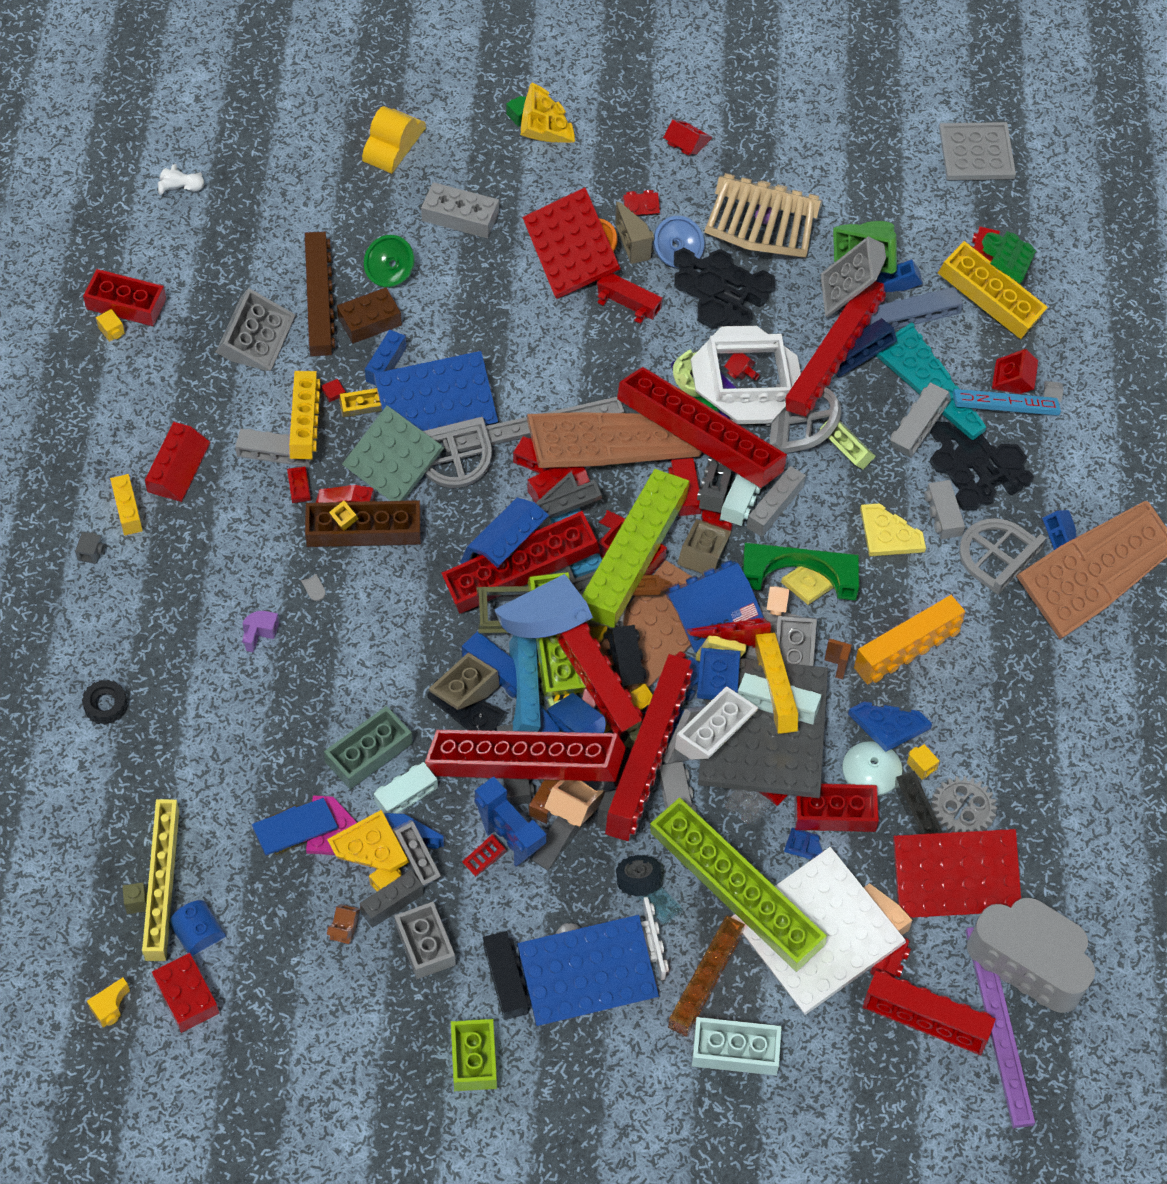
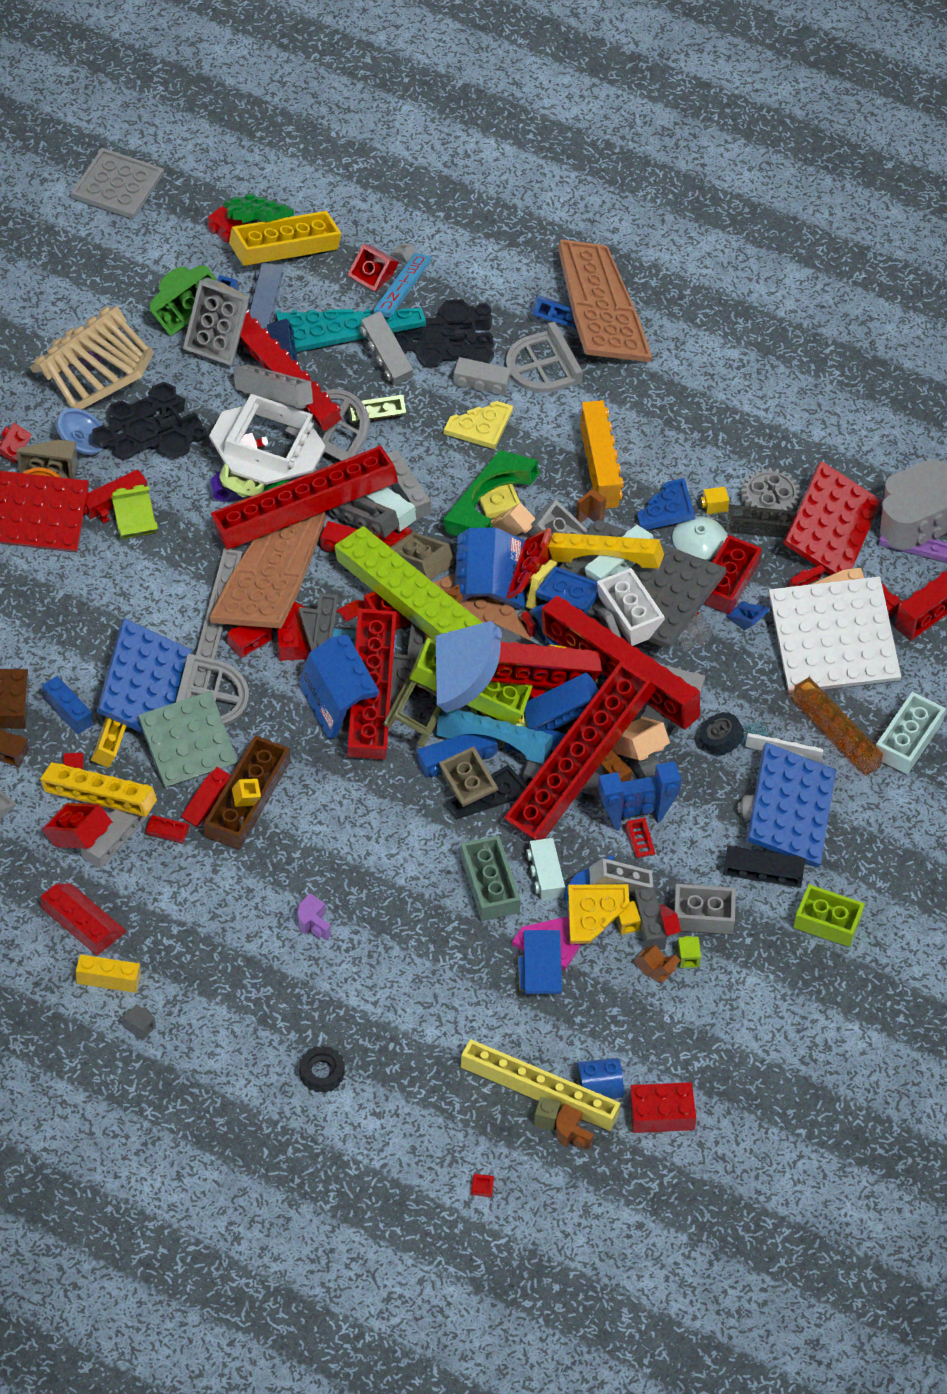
camera: 65 degrees left, 5 degrees down
(41, 878) = (482, 1185): none -> red tile
(106, 1003) = (643, 1173): yellow arch -> none
(128, 921) = (568, 1128): none -> dark orange brick
(254, 415) = (77, 825): none -> red brick
(314, 588) = (288, 861): light grey piece -> none
(373, 947) = (689, 952): none -> lime brick
(385, 911) = (670, 920): none -> red slope
(615, 316) = (134, 512): none -> lime panel
(738, 884) = (777, 661): lime brick -> none
(806, 348) = (273, 385): none -> light grey brick
(877, 878) = (807, 576): none -> red plate

